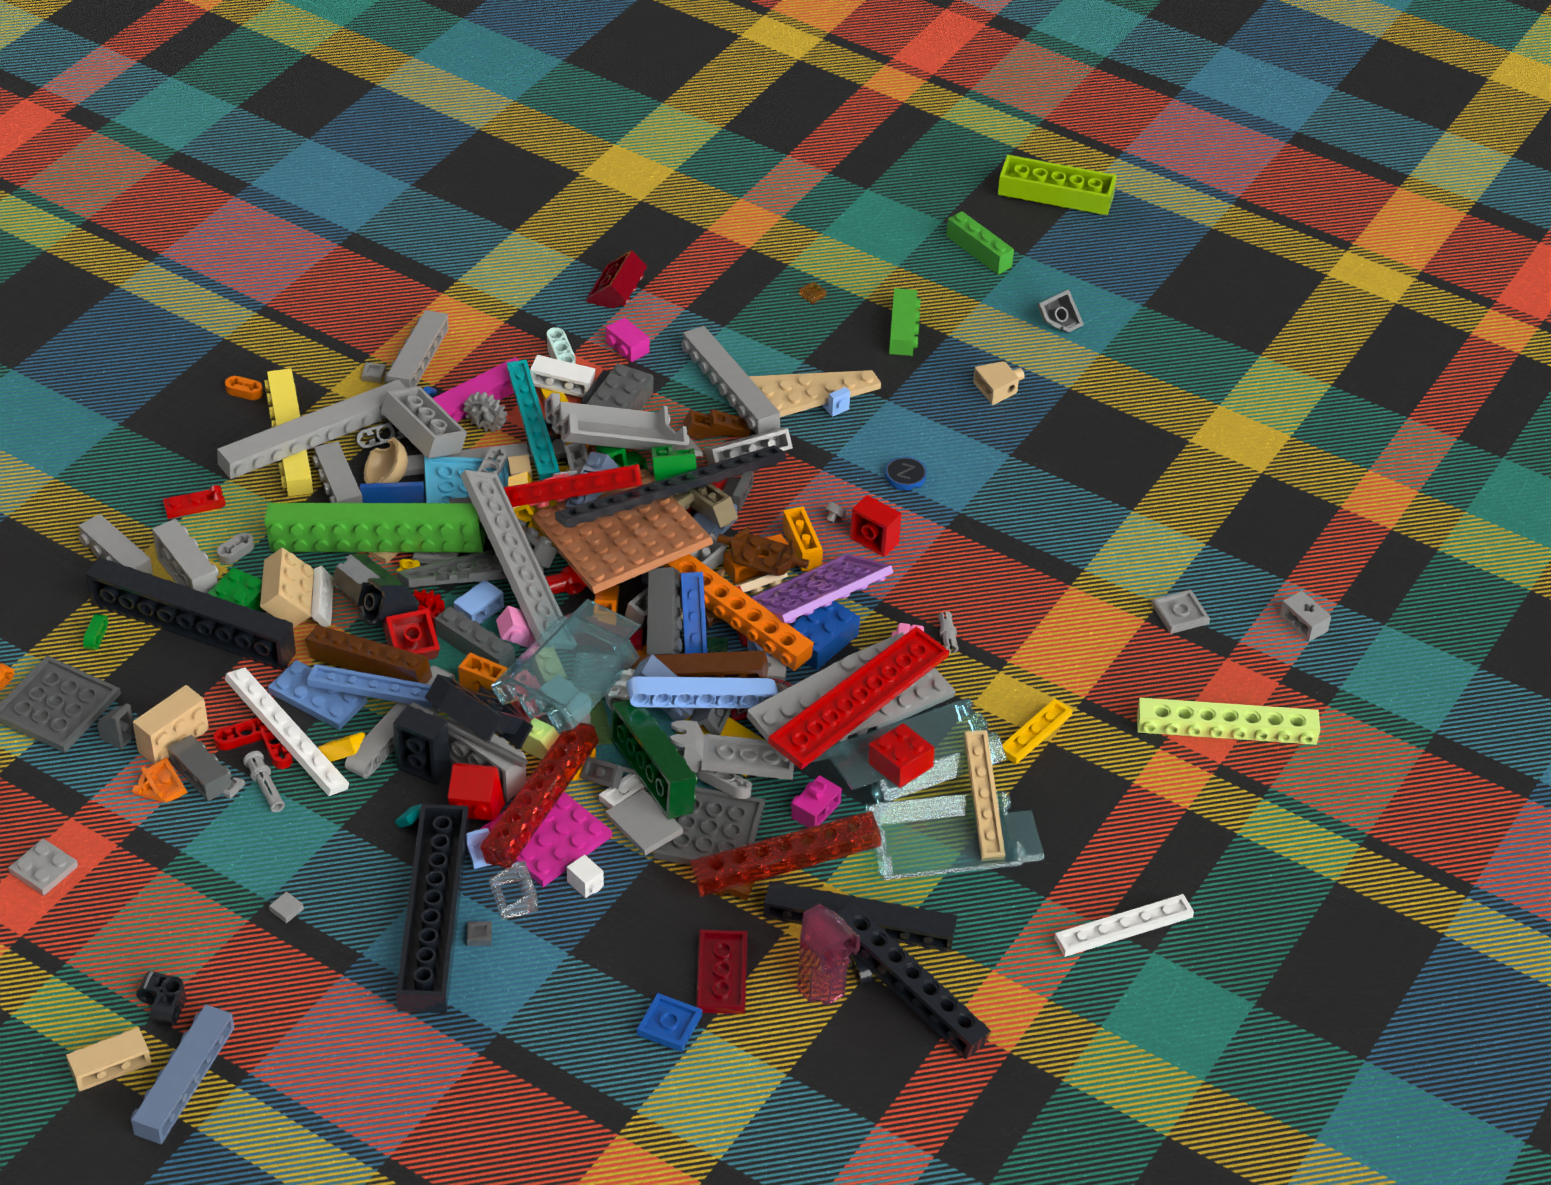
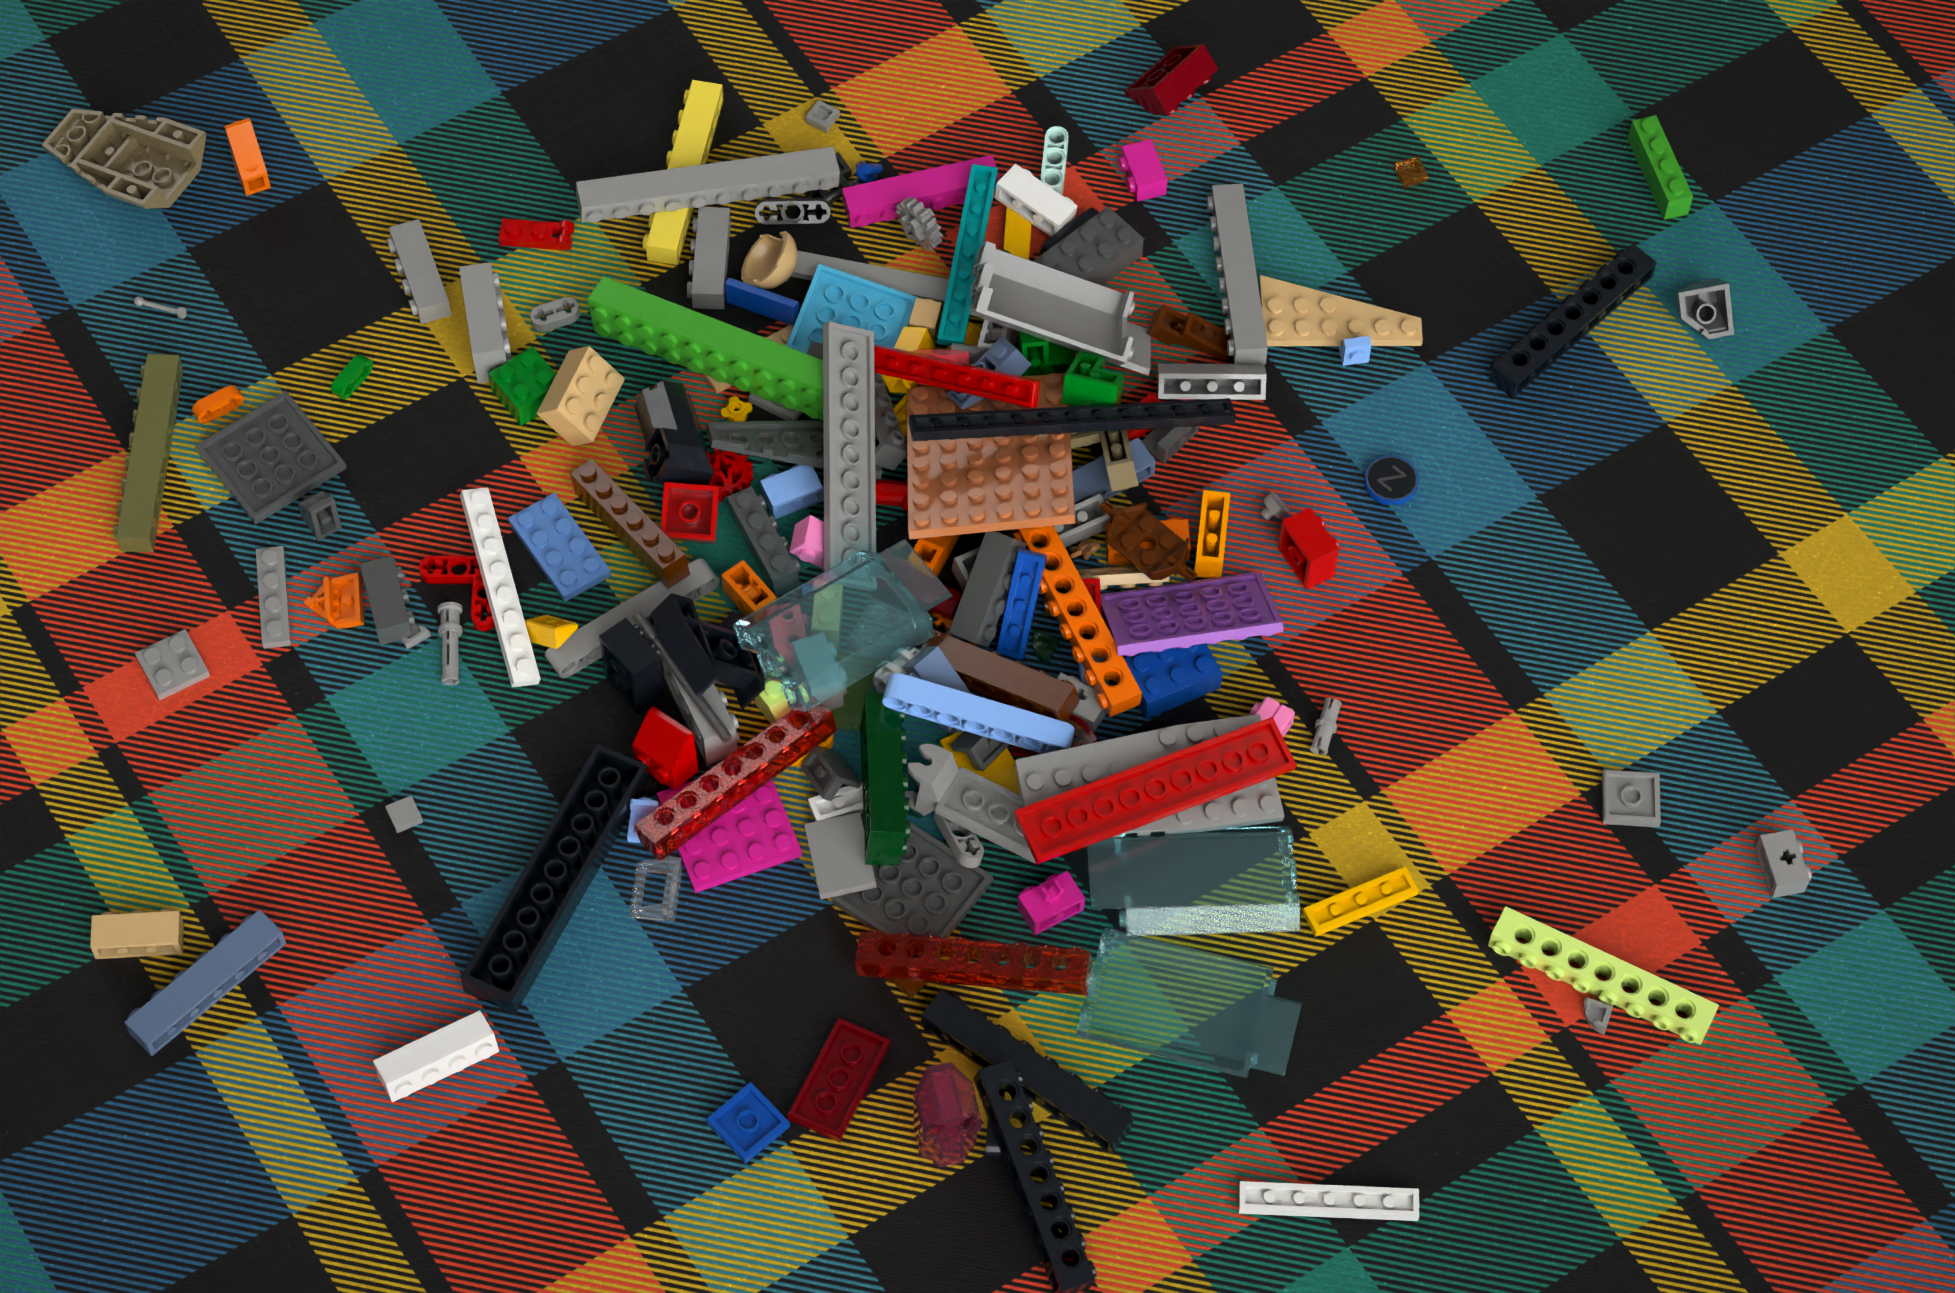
camera: 25 degrees right, 15 degrees up
(104, 796) = (273, 597): none -> light grey plate
(165, 994) = (224, 891): black piece -> none
(170, 722) = (375, 534): tan brick -> none
(191, 613) = (462, 392): black brick -> none
(243, 388) = (660, 91): orange beam -> none
(322, 597) = (618, 419): white plate -> none
(369, 685) = (611, 561): medium blue plate -> none
(400, 1059) = (436, 1056): none -> white brick
(409, 816) = (583, 749): teal tile -> none
(418, 349) = (882, 107): light grey brick -> none
(423, 422) = (833, 219): light grey brick -> none
(479, 933) = (596, 927): flat silver tile -> none
(489, 461) = (889, 297): light grey beam -> none
(585, 876) = (742, 900): white brick -> none
(901, 755) = (1164, 888): red brick -> none
(903, 322) = (1500, 256): bright green brick -> none
(973, 345) = (1637, 270): none -> black brick
(984, 795) = (1245, 971): tan tile -> none
(997, 381) = (1575, 385): tan torso -> none
(1057, 184) = (1807, 110): lime brick -> none
(1237, 748) = (1597, 1014): none -> light grey tile

